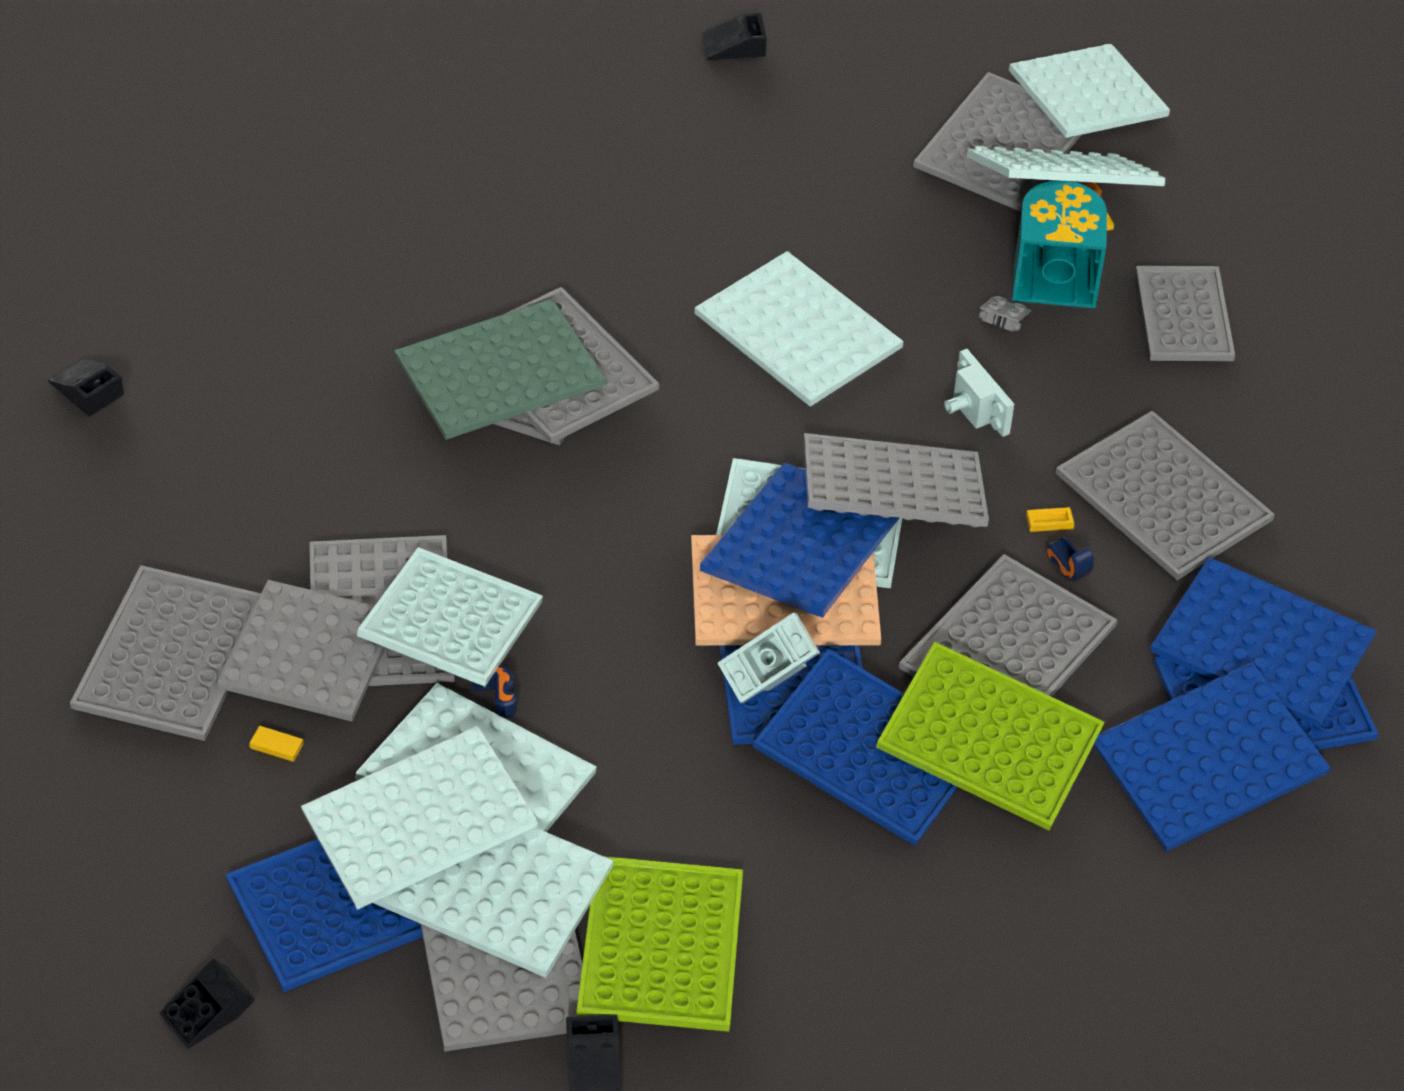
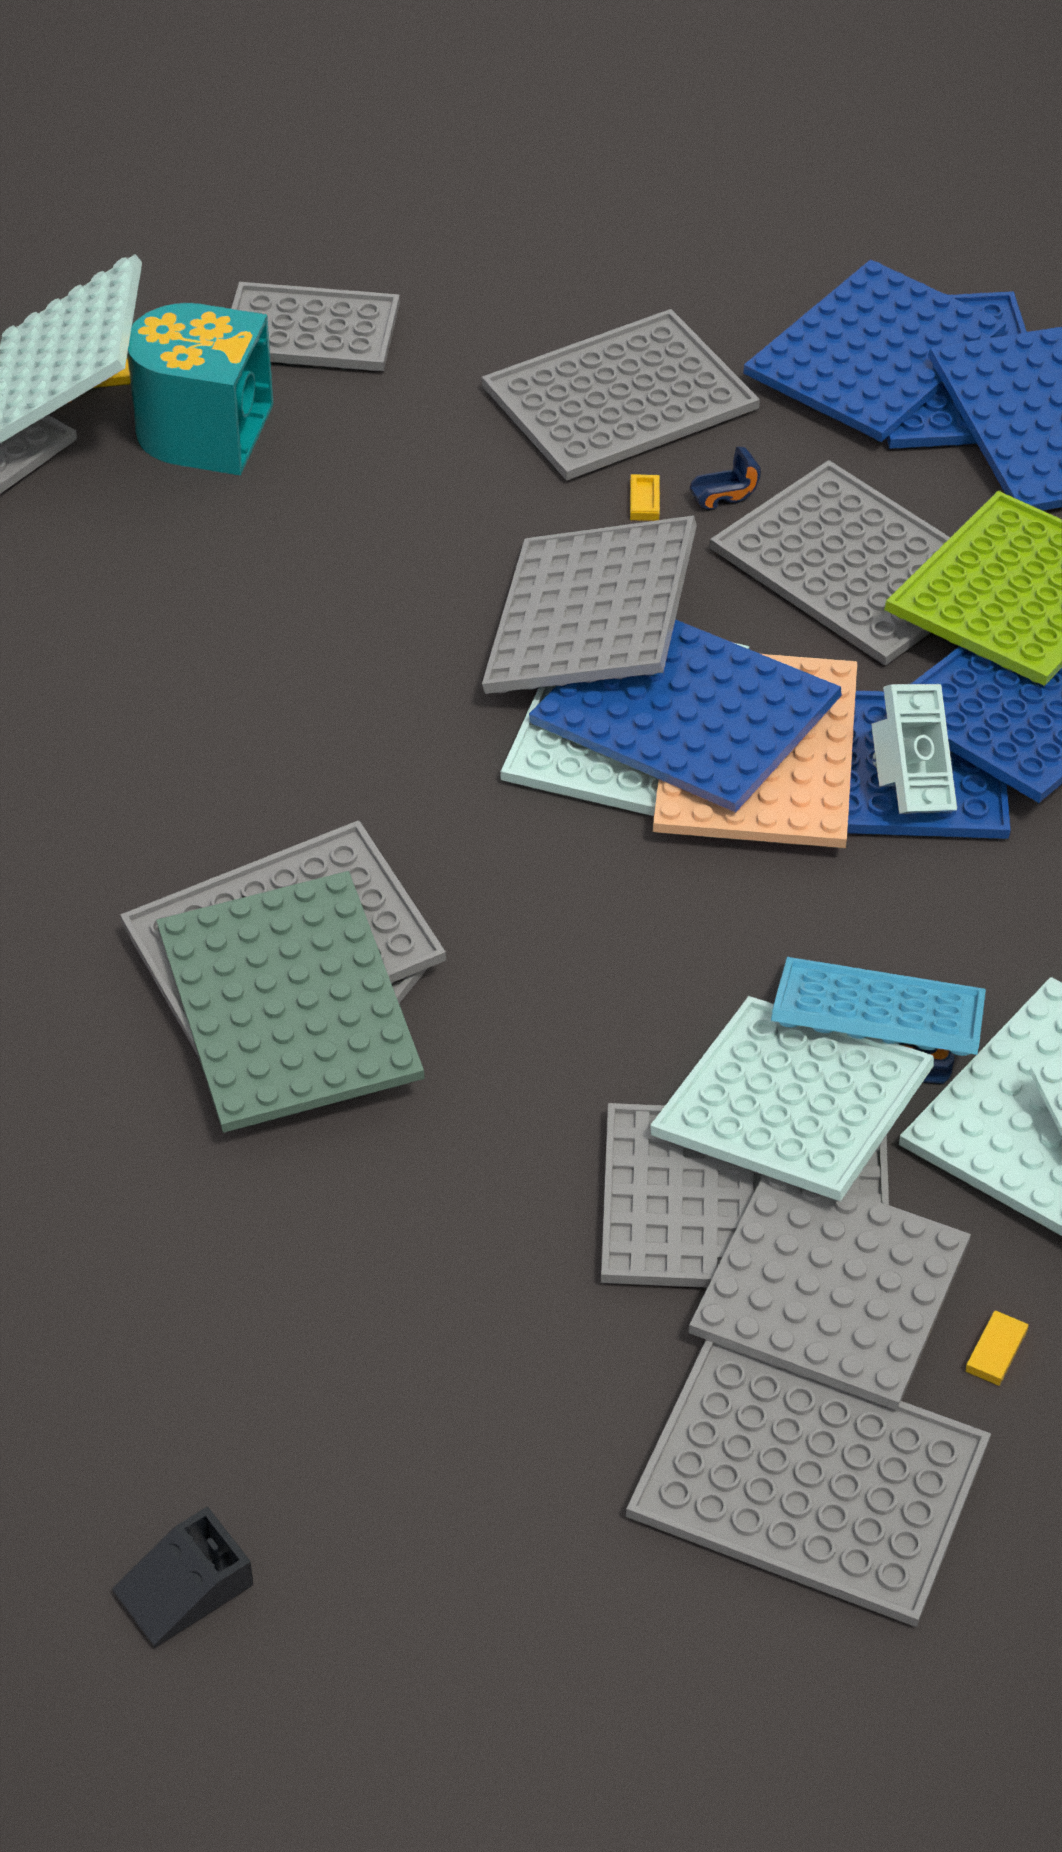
camera: 80 degrees left, 0 degrees up
(540, 661) = (880, 1006): none -> medium azure plate
(798, 328) = (245, 683): light aqua plate -> none
(980, 396) = (433, 513): light aqua brick -> none
(999, 307) = (272, 479): light grey hinge -> none

